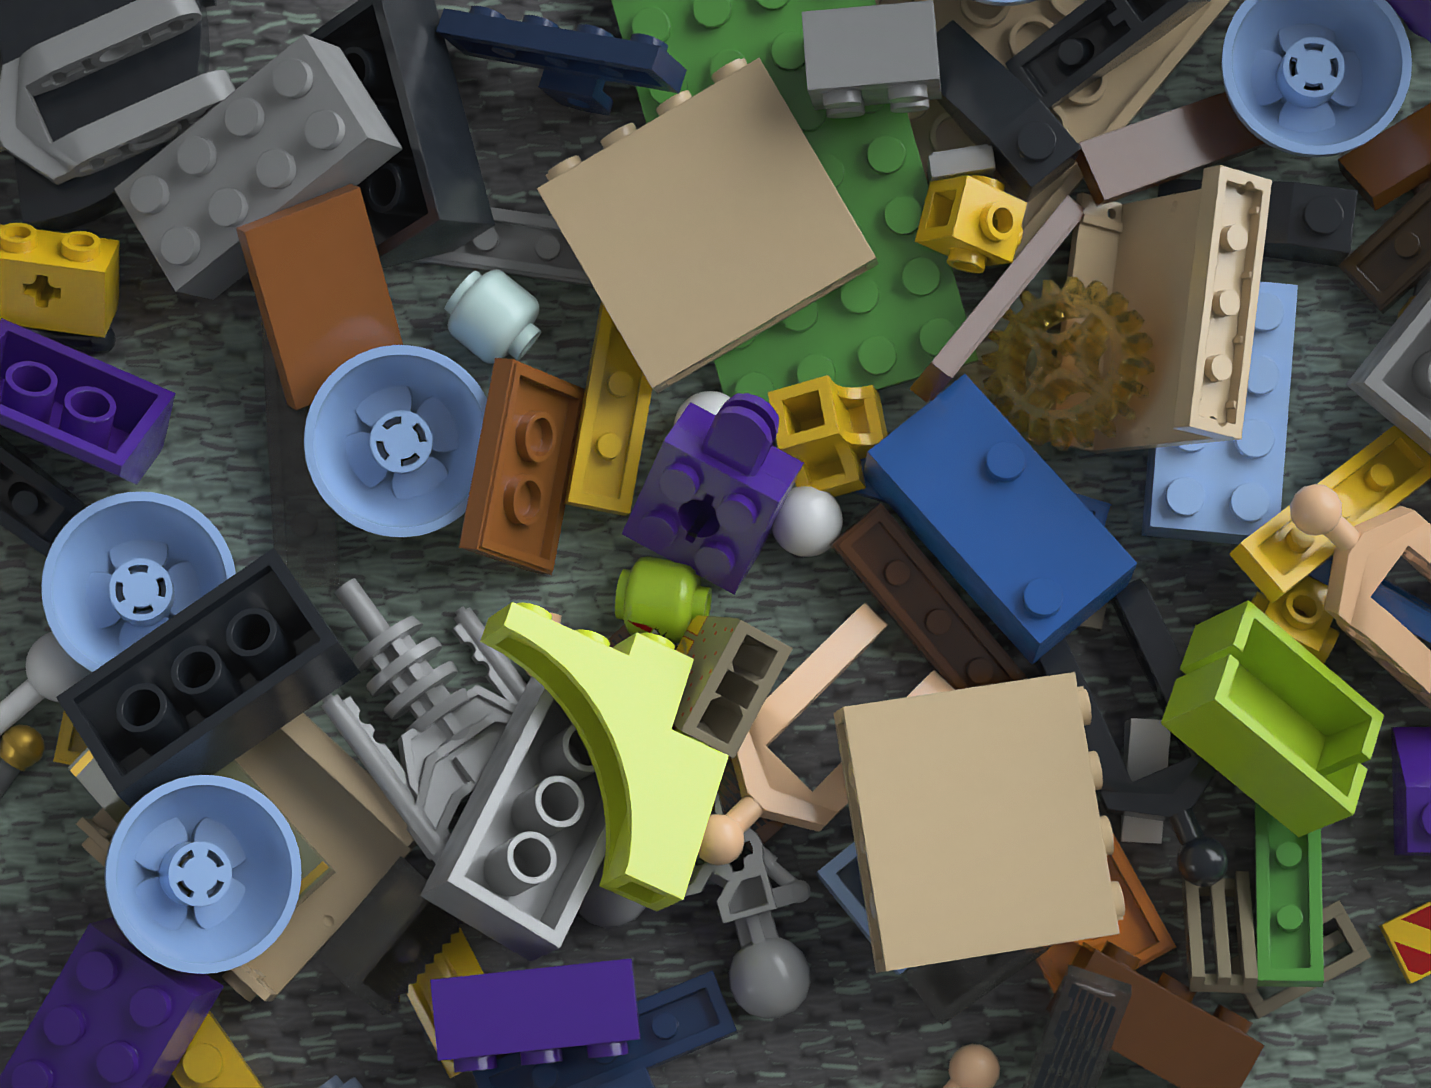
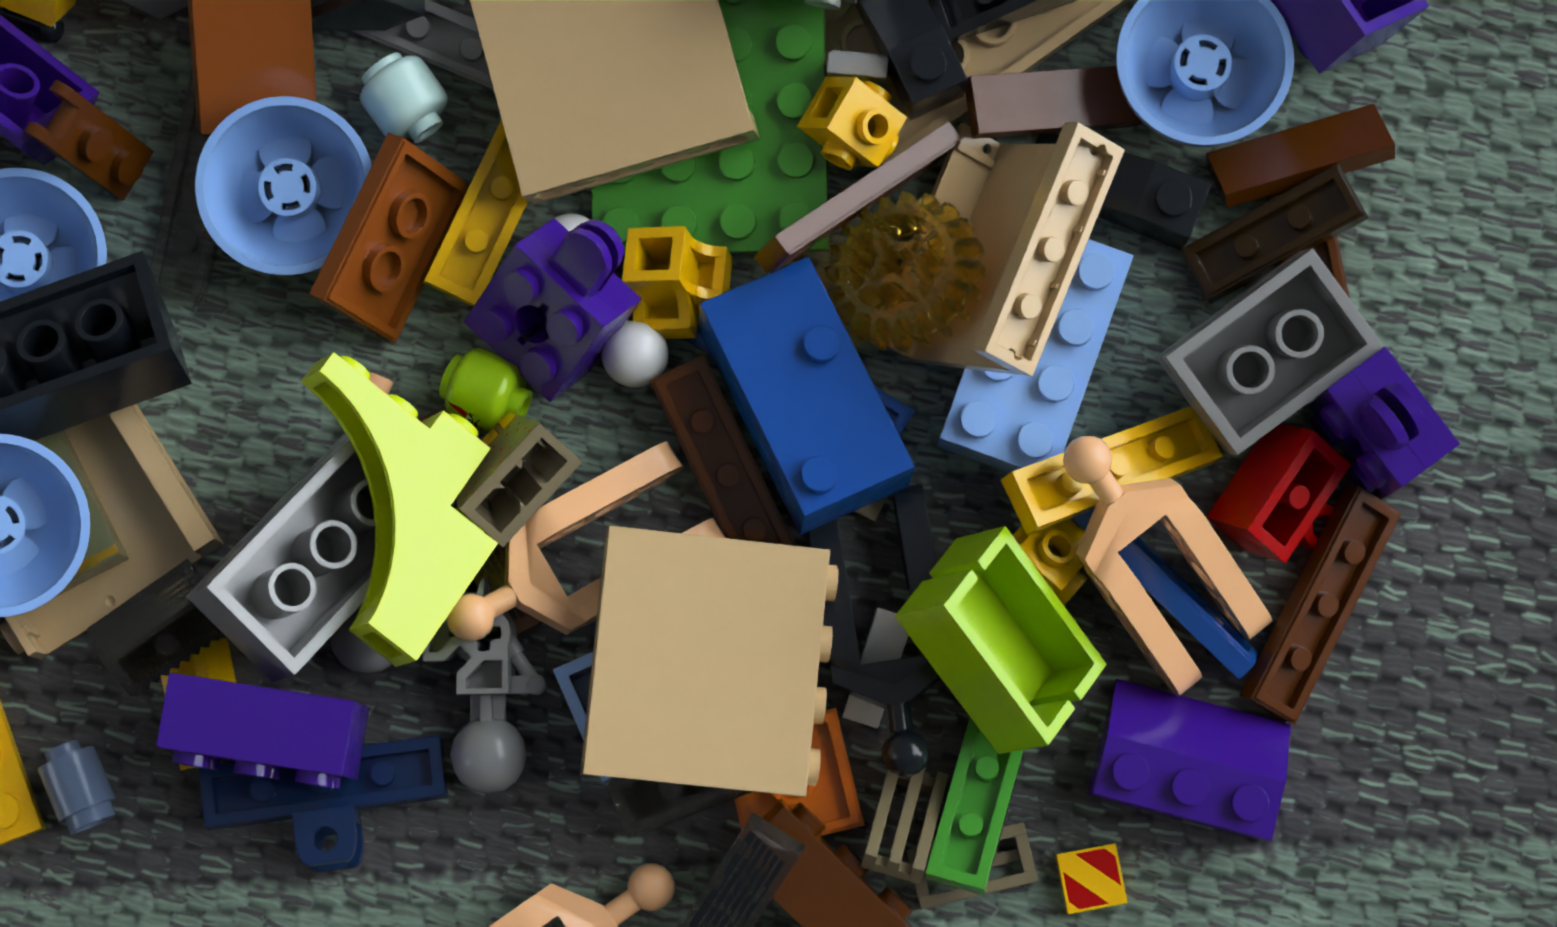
camera: 15 degrees right, 0 degrees up
(185, 448) = (92, 142): none -> reddish brown hinge
(452, 733) = (261, 459): light grey bar -> none

